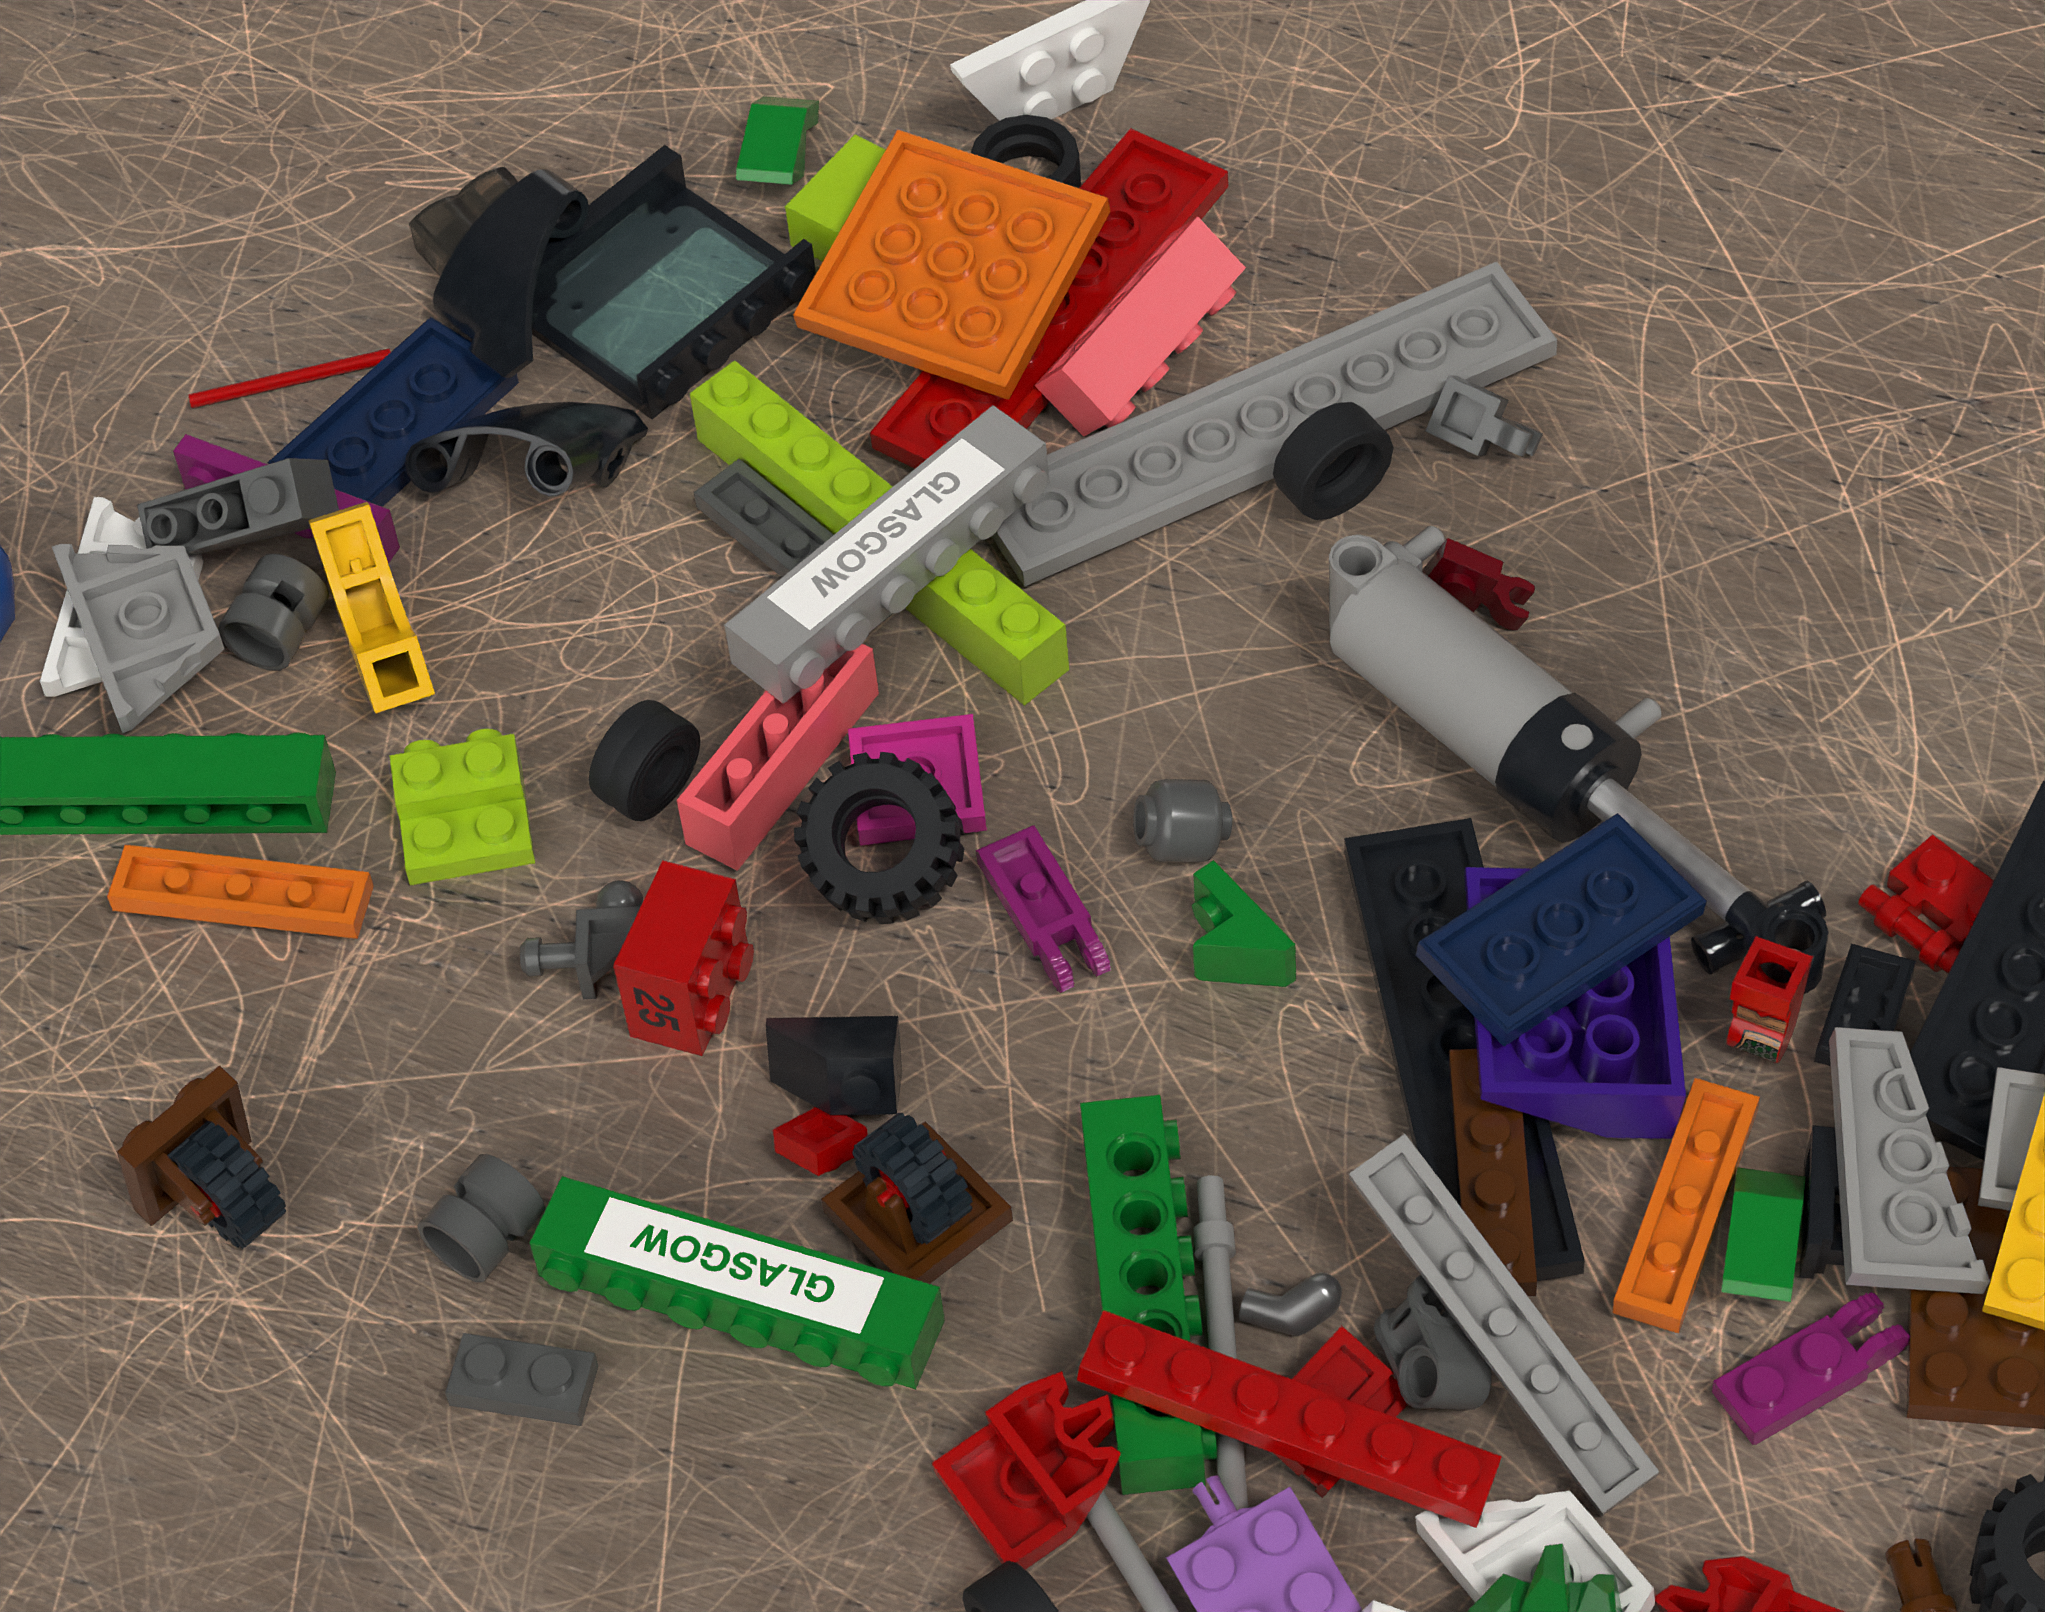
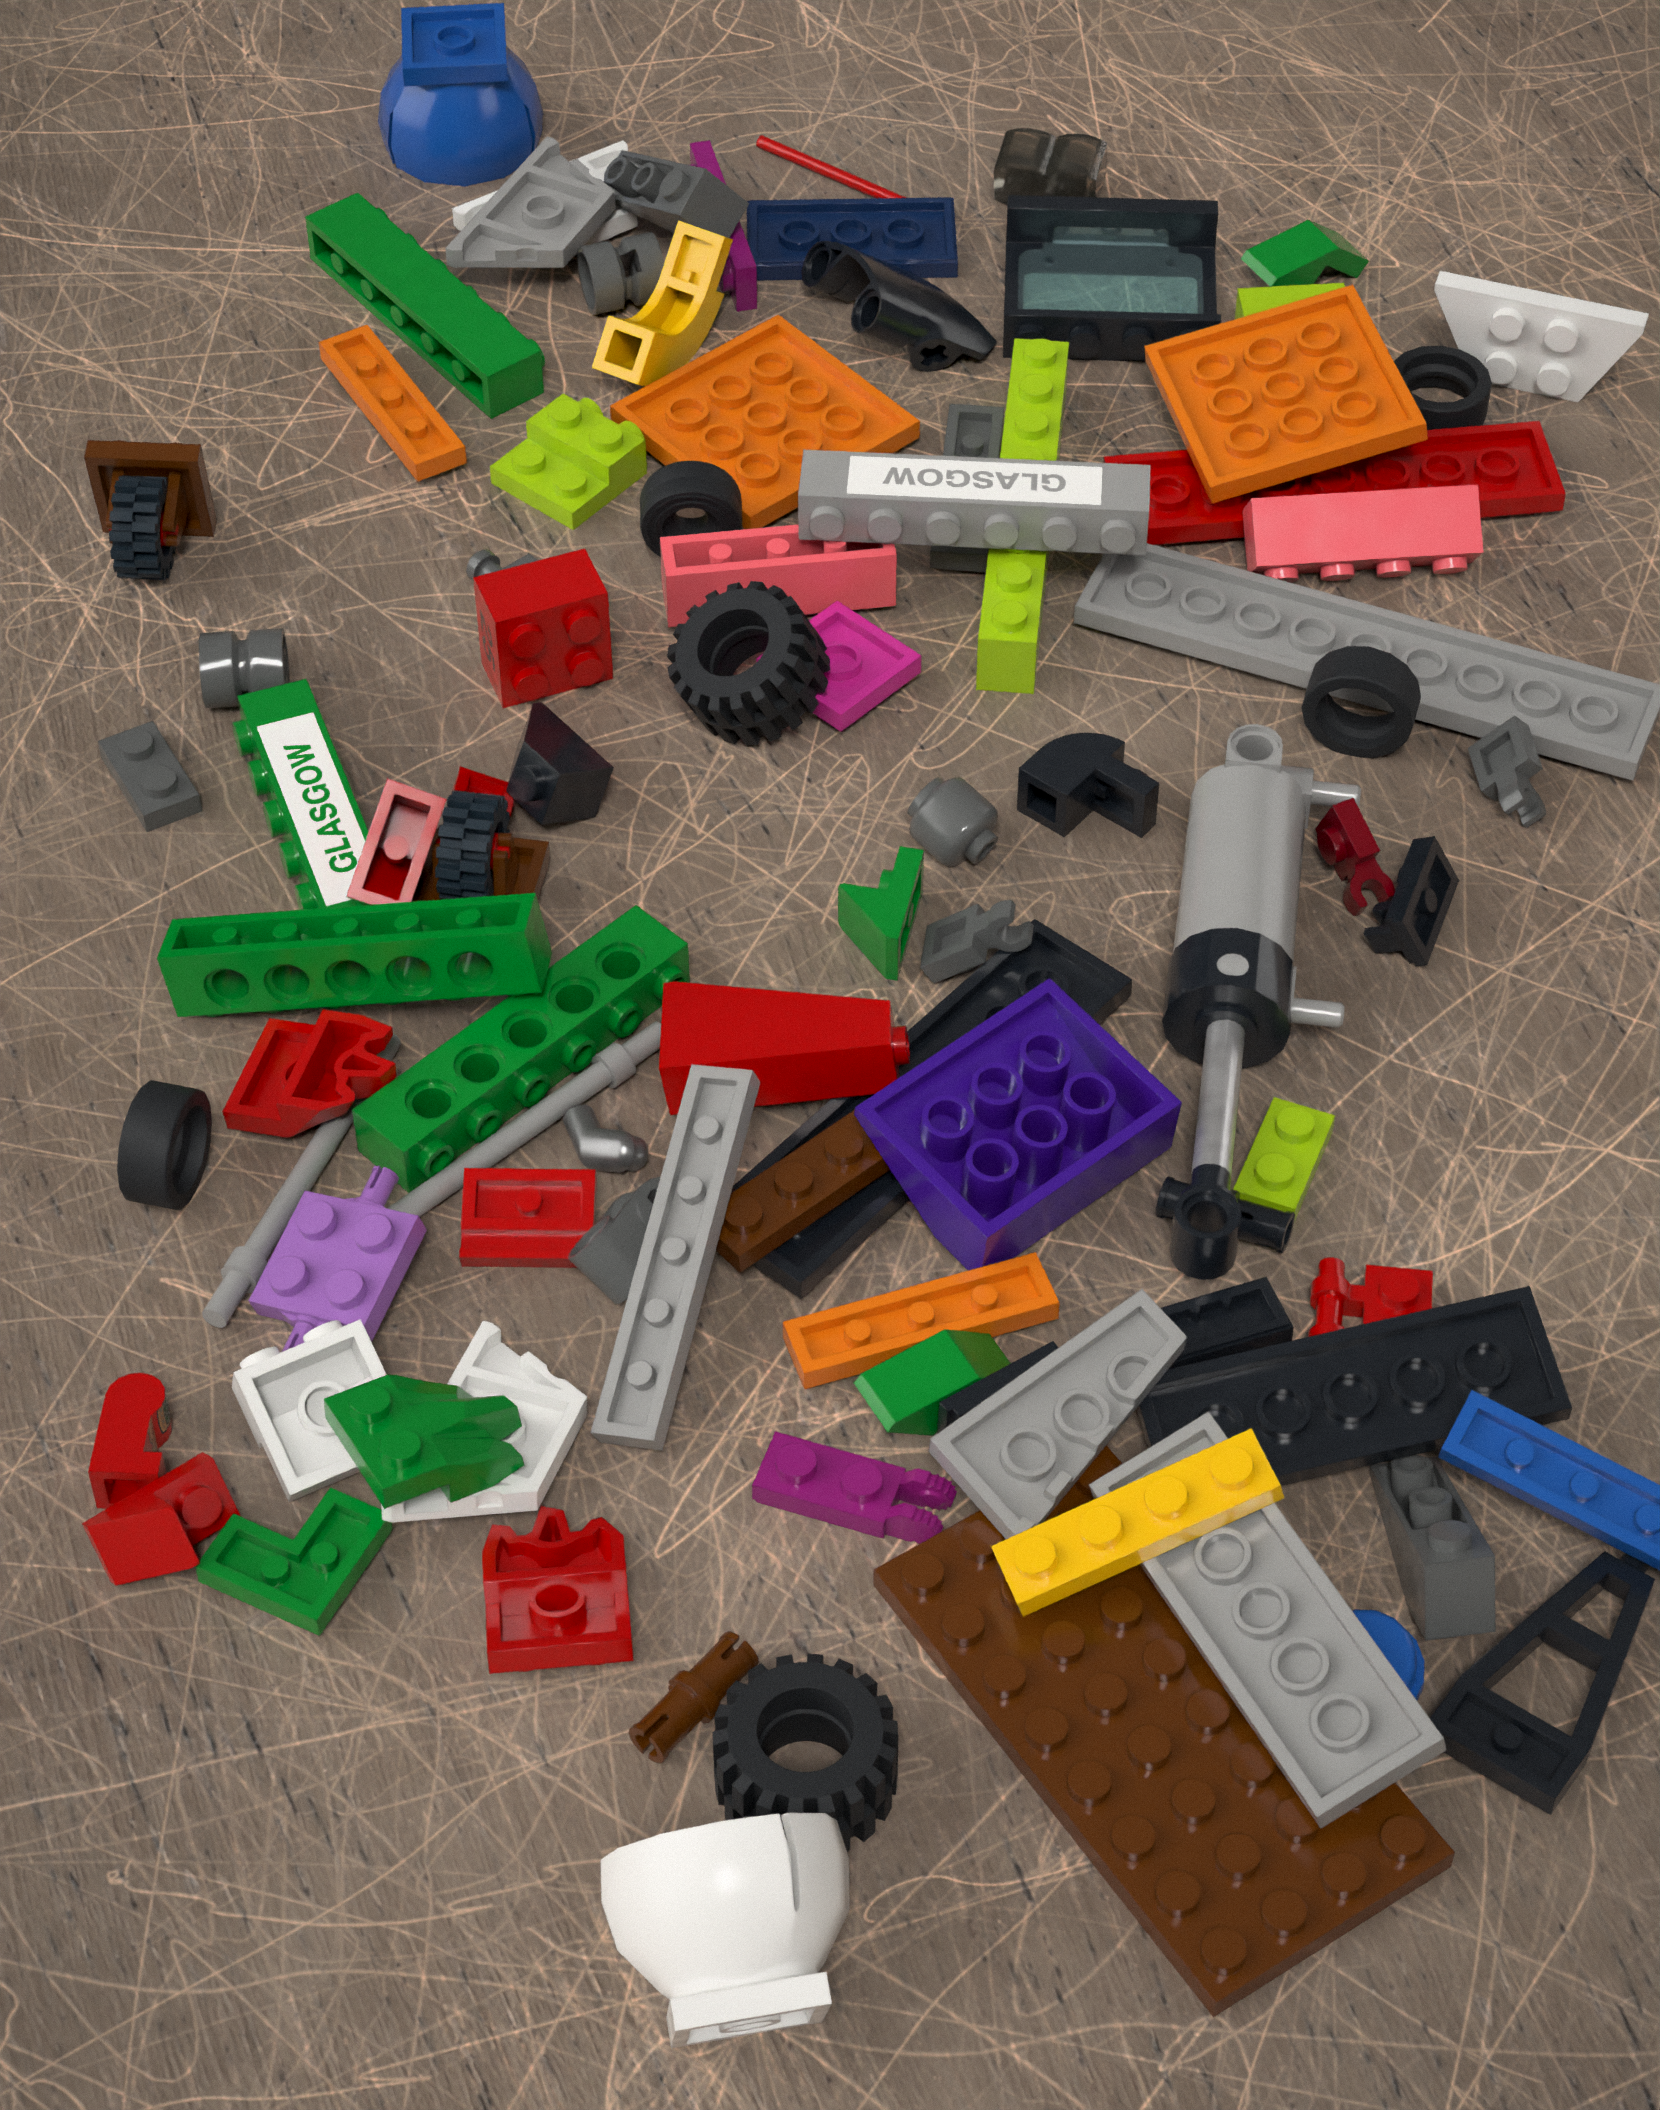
camera: 45 degrees right, 5 degrees down
(496, 265) = (981, 198): black panel -> none
(563, 631) = (758, 408): none -> orange plate
(865, 1232) = (396, 845): none -> slope
(954, 1347) = (356, 955): none -> green brick
(1042, 903) = (803, 796): magenta hinge -> none
(1221, 695) = (1083, 776): none -> black brick
(1289, 1418) = (479, 1186): red plate -> none
(1319, 901) = (962, 939): none -> dark grey plate
(1323, 1112) = (791, 1040): none -> red slope
(1560, 929) = (1052, 1065): dark blue tile -> none
(1570, 591) = (1418, 905): none -> black plate
(1733, 842) = (1285, 1156): none -> lime plate
(1765, 1008) = (1140, 1245): red leg -> none

